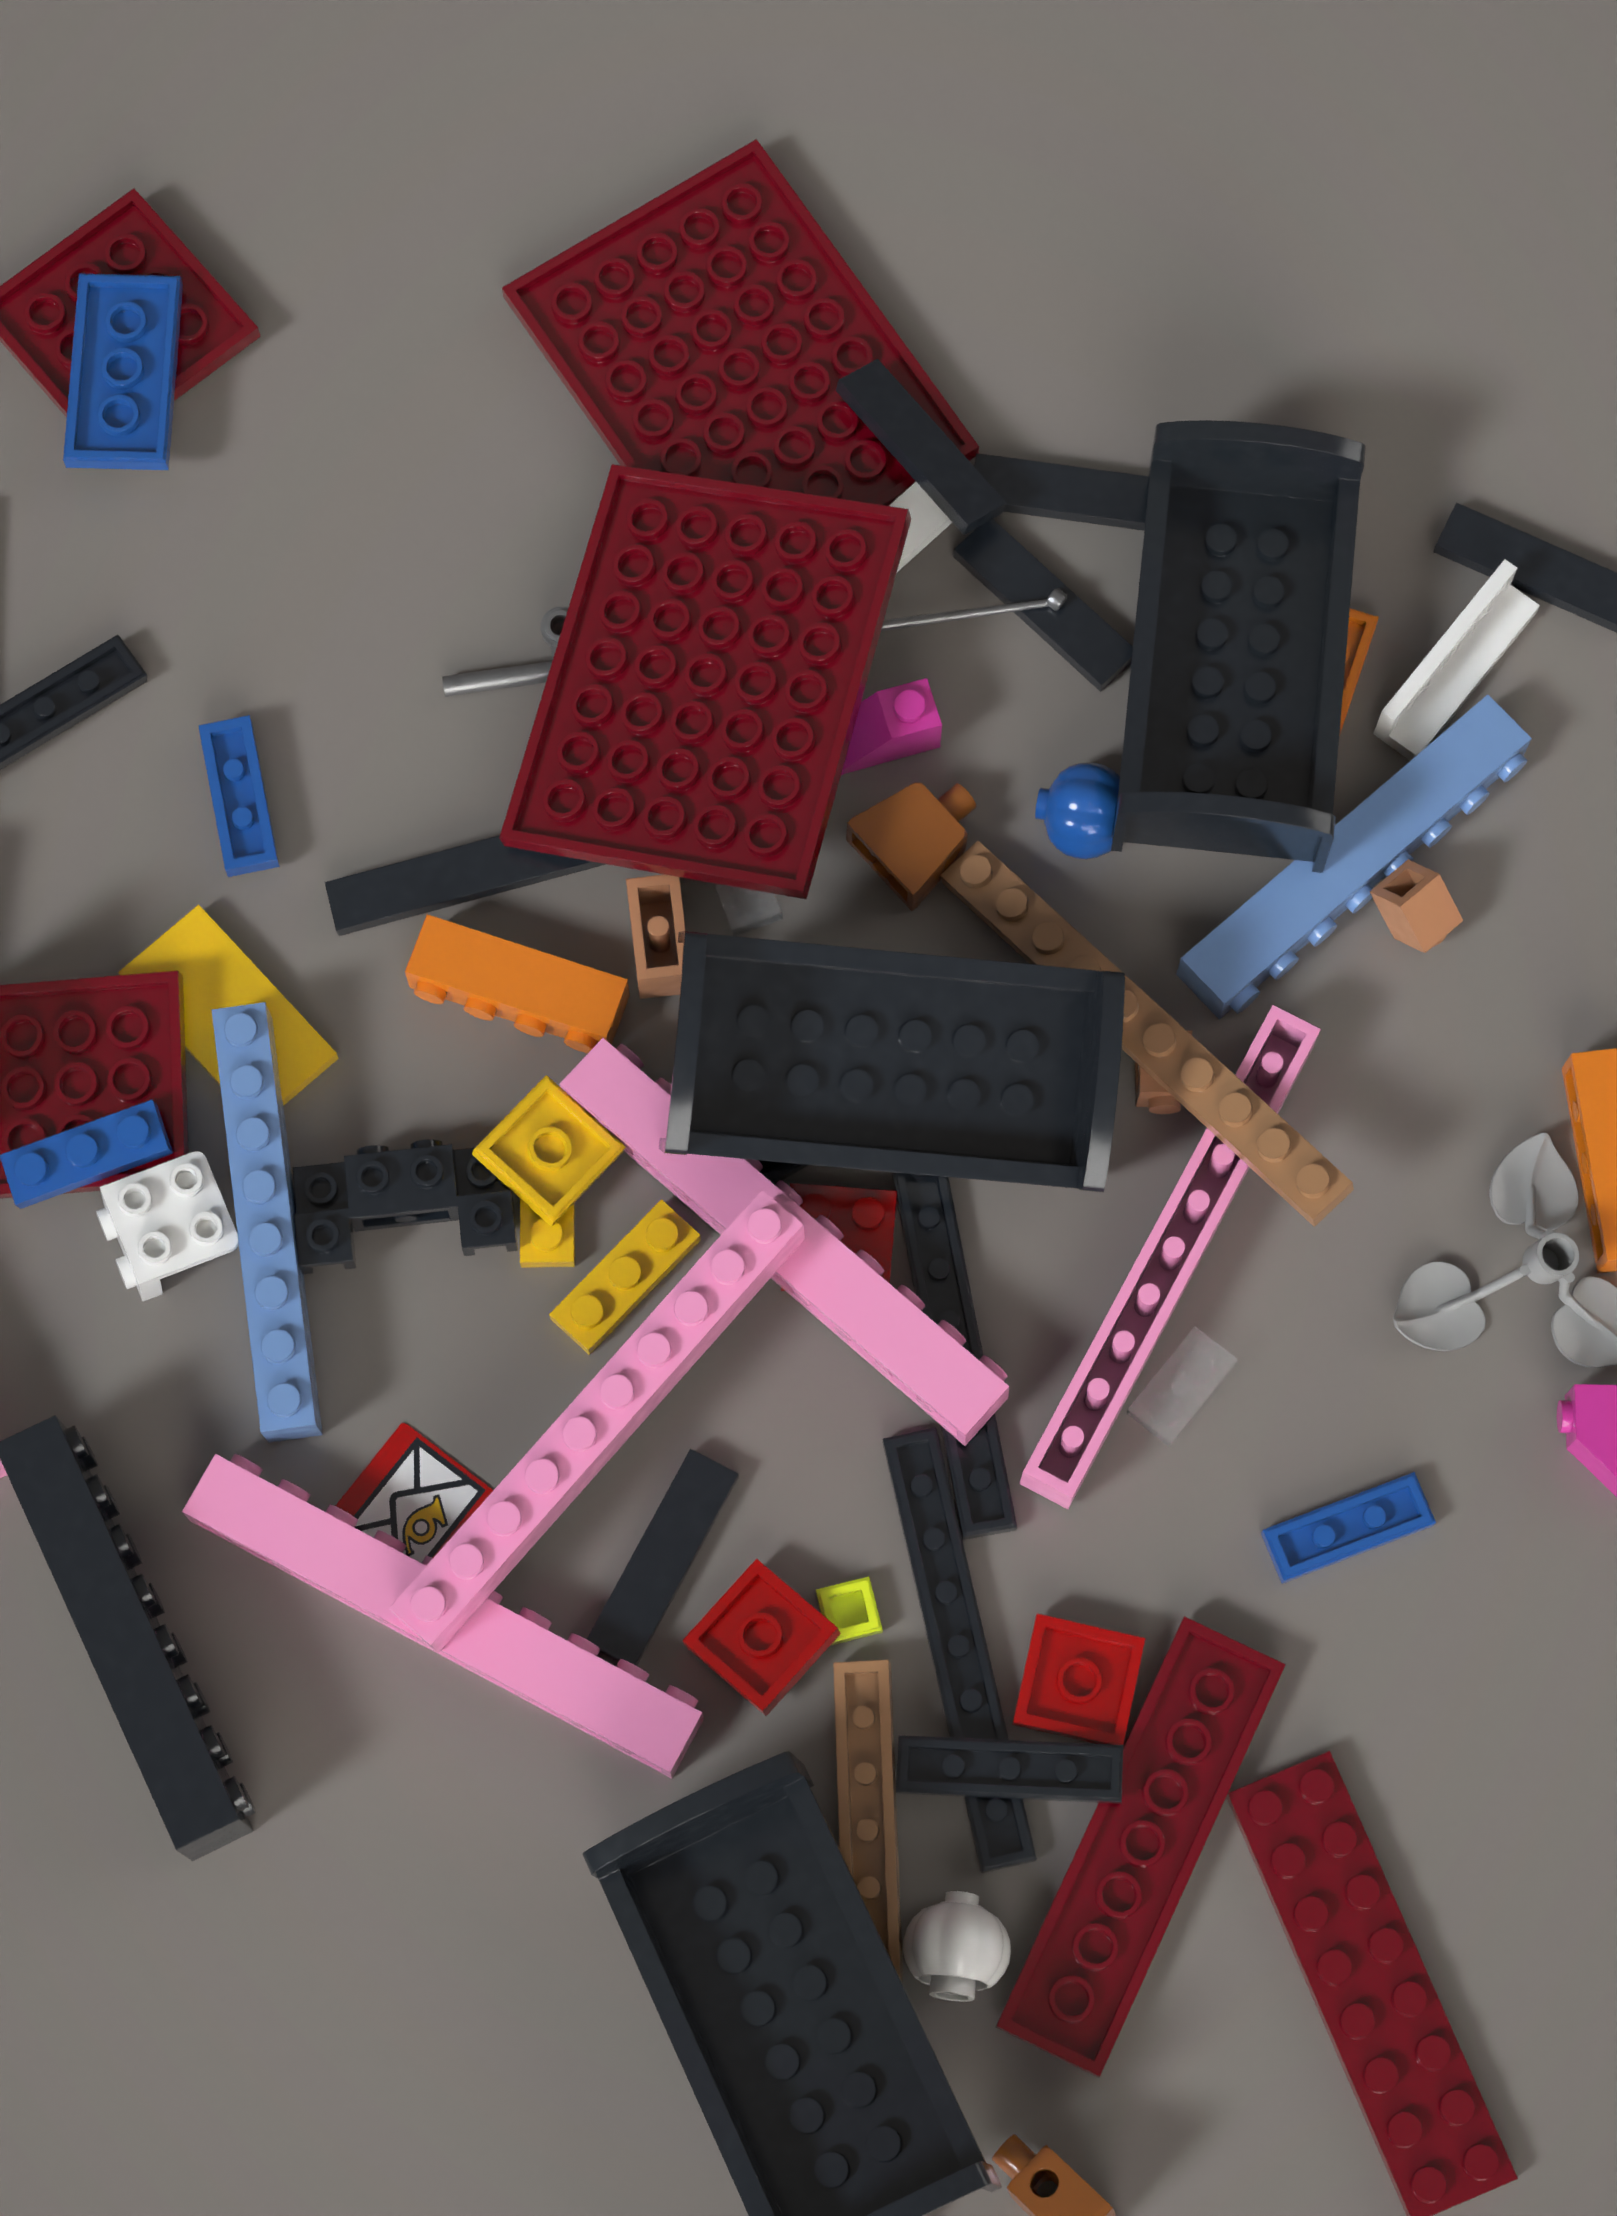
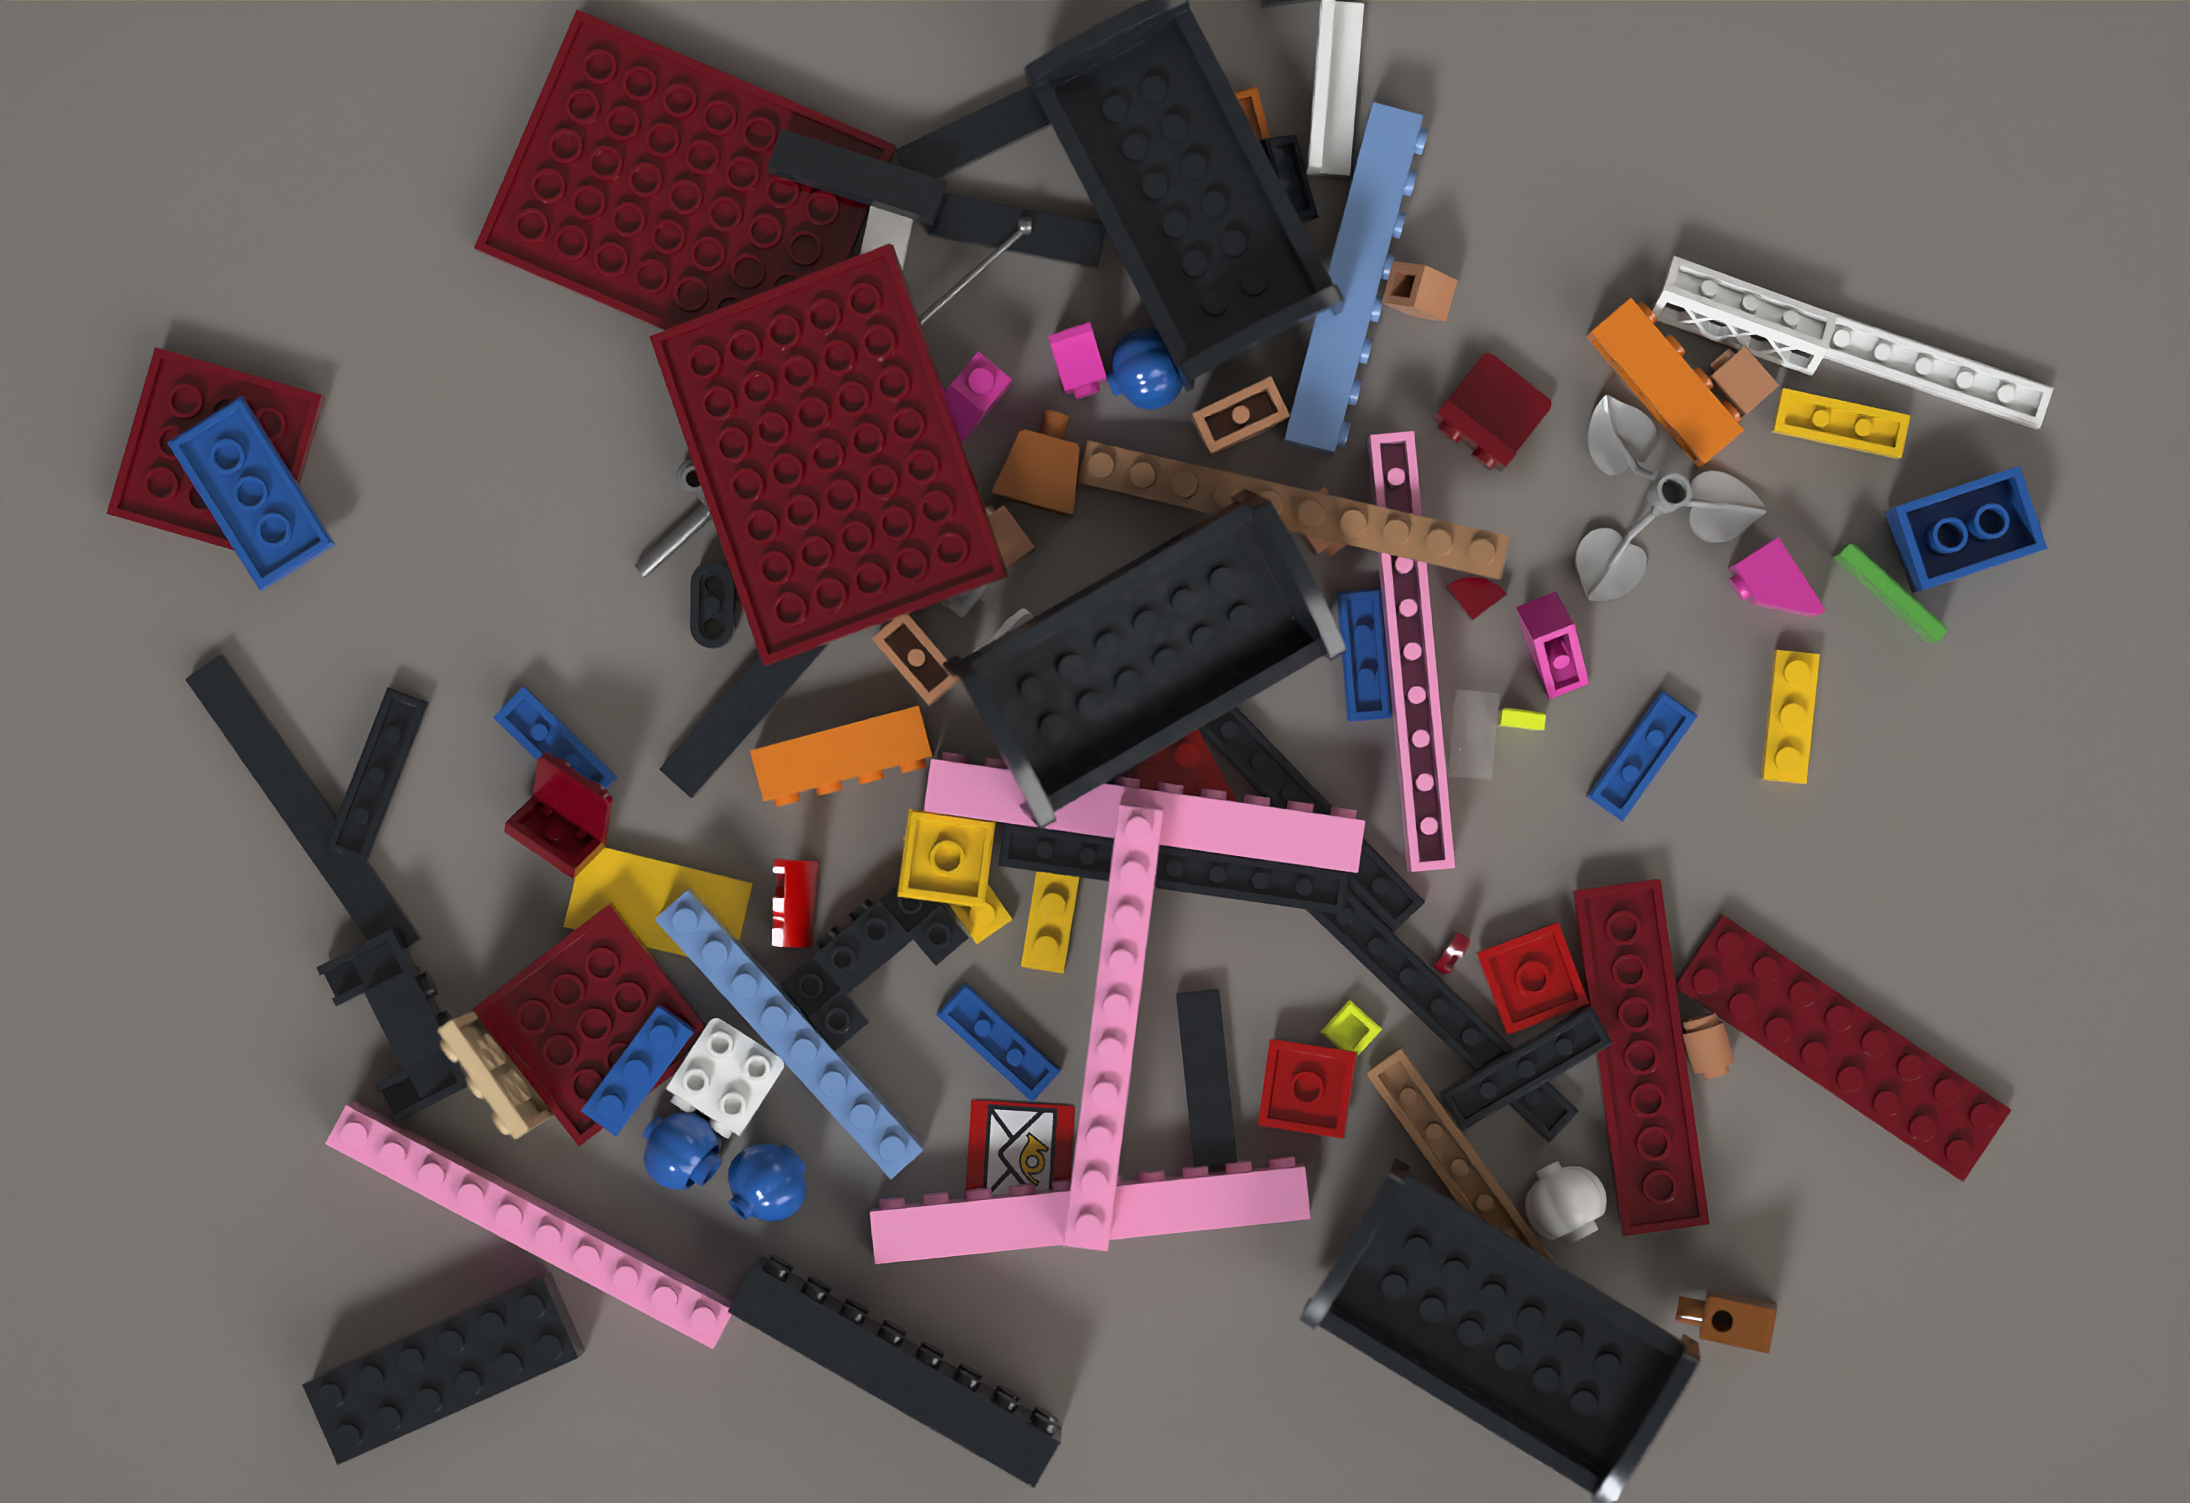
camera: 30 degrees left, 15 degrees up
(71, 1269) = (681, 1150): none -> blue plant
(132, 1355) = (767, 1182): none -> blue plant
(197, 865) = (564, 817): none -> dark red bracket
(365, 1094) = (794, 902): none -> red slope
(472, 1379) = (998, 1042): none -> blue tile
(489, 762) = (712, 605): none -> black plate
(785, 1323) = (1179, 869): none -> black tile
(831, 885) = (1010, 537): none -> nougat brick
(1010, 1598) = (1453, 949): none -> dark red tile
(1021, 750) = (1077, 360): none -> dark pink slope
(1119, 1235) = (1365, 655): none -> blue tile
(1149, 910) = (1240, 416): none -> nougat brick
(1223, 1879) = (1707, 1045): none -> nougat brick
(1243, 1402) = (1521, 719): none -> neon yellow tile
(1278, 1248) = (1475, 594): none -> dark red tile
(1327, 1349) = (1553, 644): none -> dark pink slope
(1359, 714) = (1289, 166): none -> black tile
(1414, 1076) = (1492, 412): none -> dark red bracket
(1535, 1590) = (1790, 716): none -> yellow plate

